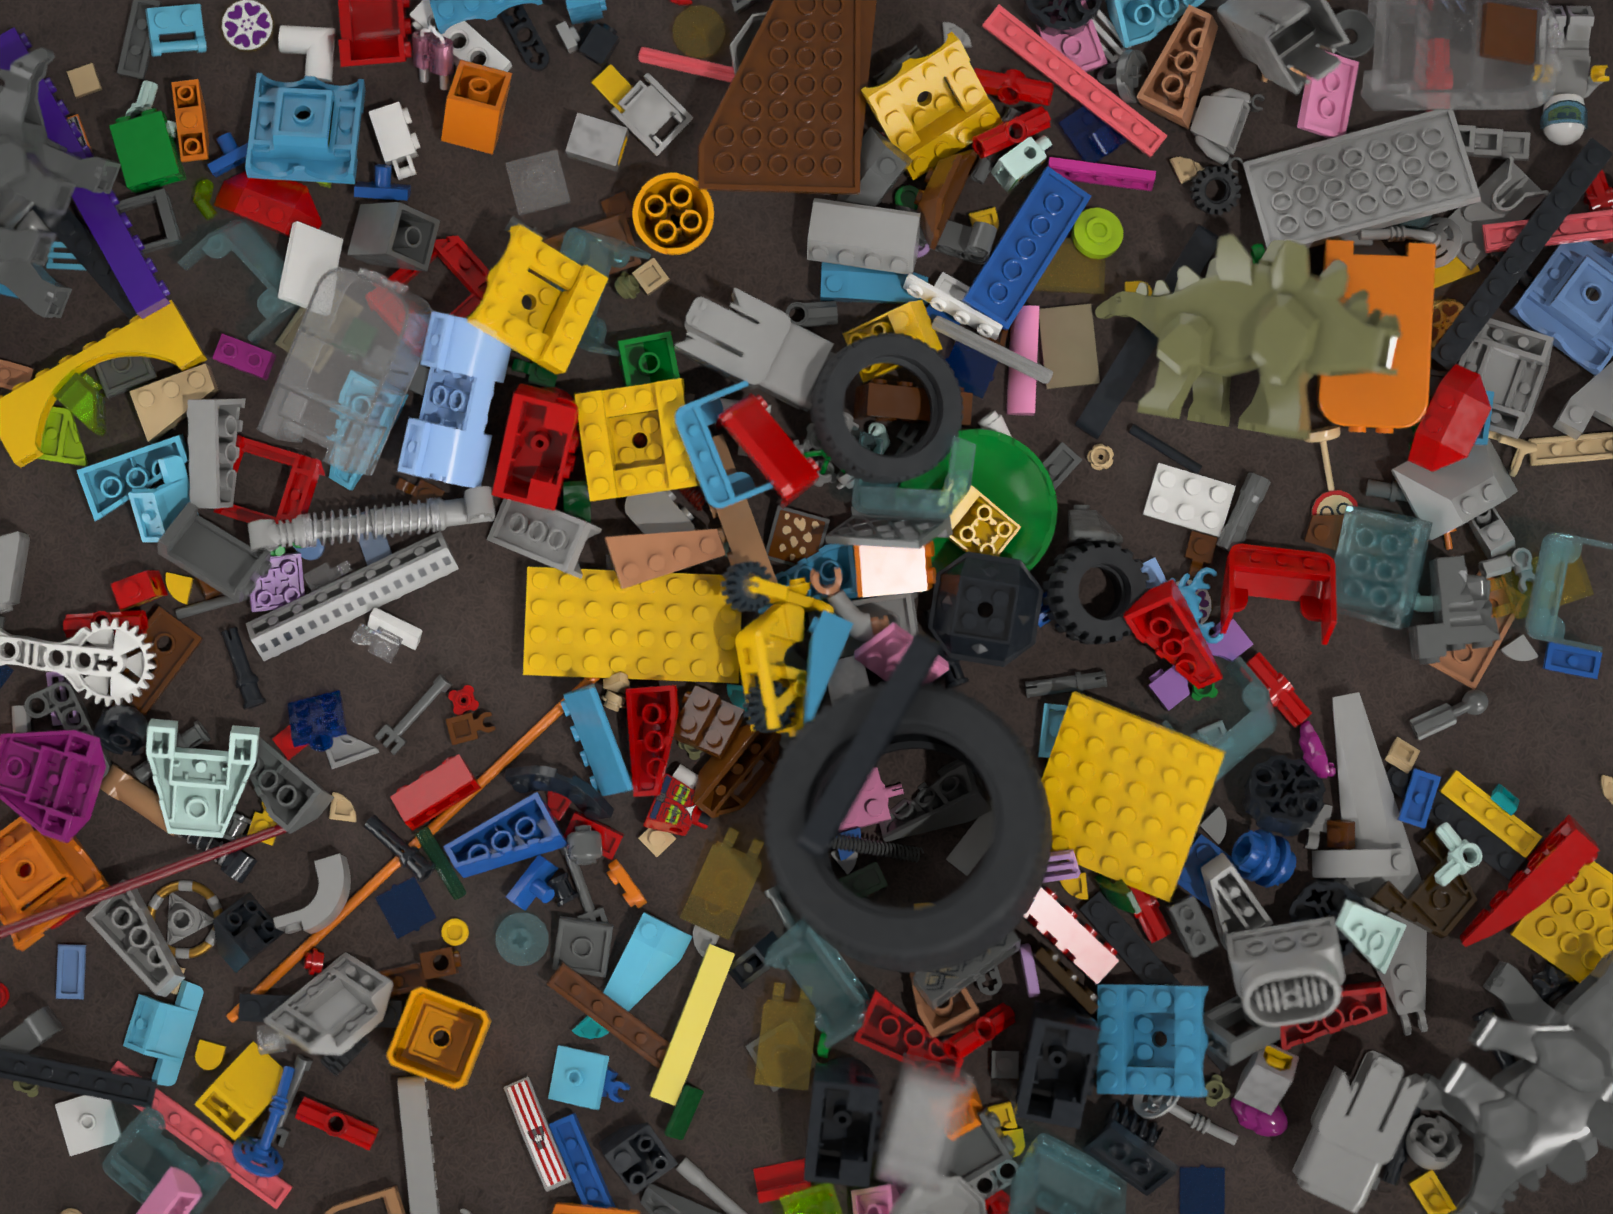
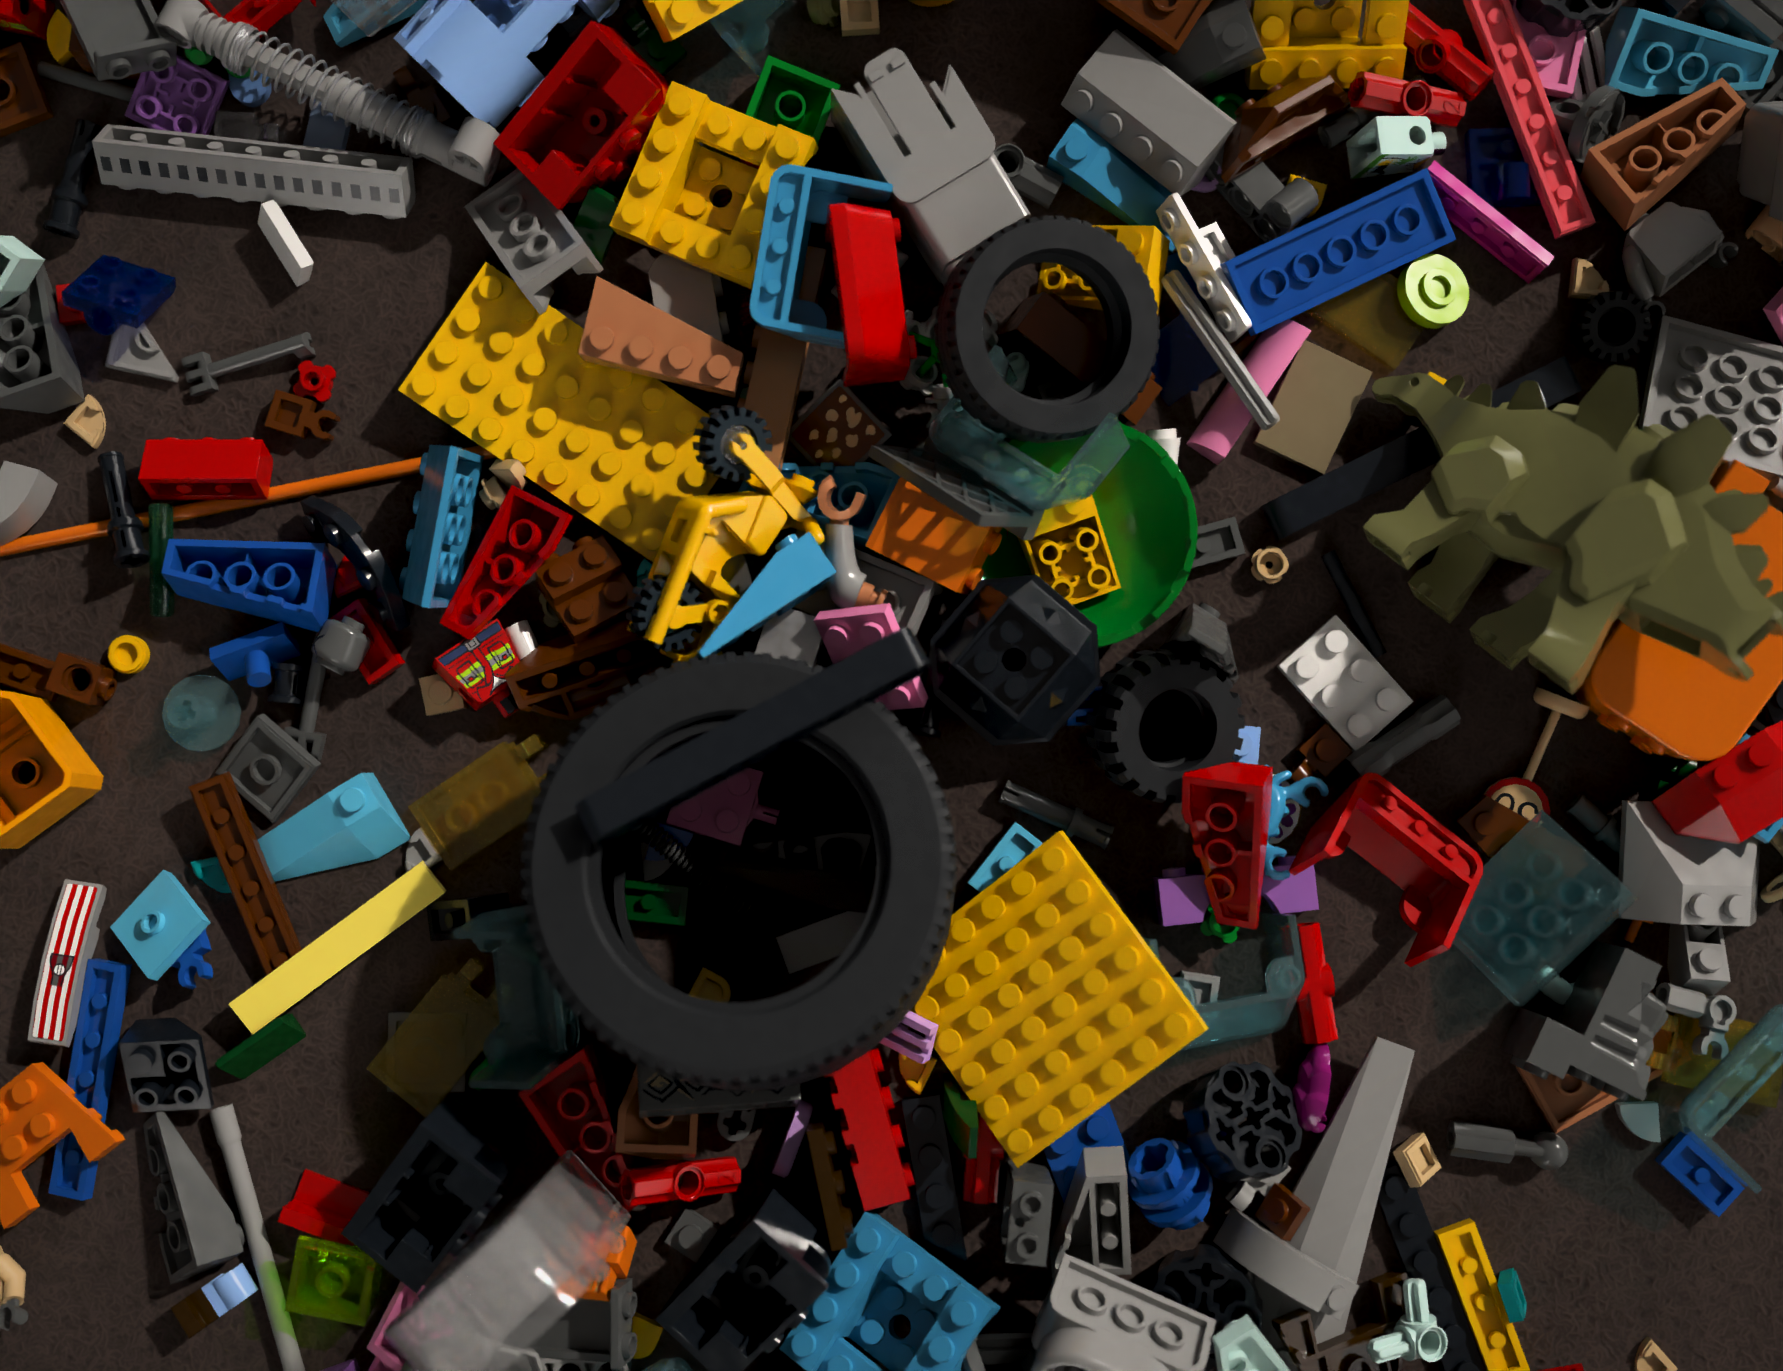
camera: 30 degrees right, 0 degrees up
(382, 642) = (259, 248): clear plate -> none
(405, 907) = (88, 589): clear blue piece -> none
(619, 875) = (369, 737): orange plate -> none
(1005, 1114) = (650, 1294): yellow tile -> none
(1215, 825) = (1133, 1102): light grey tile -> none
(1419, 798) = (1408, 1230): blue plate -> none

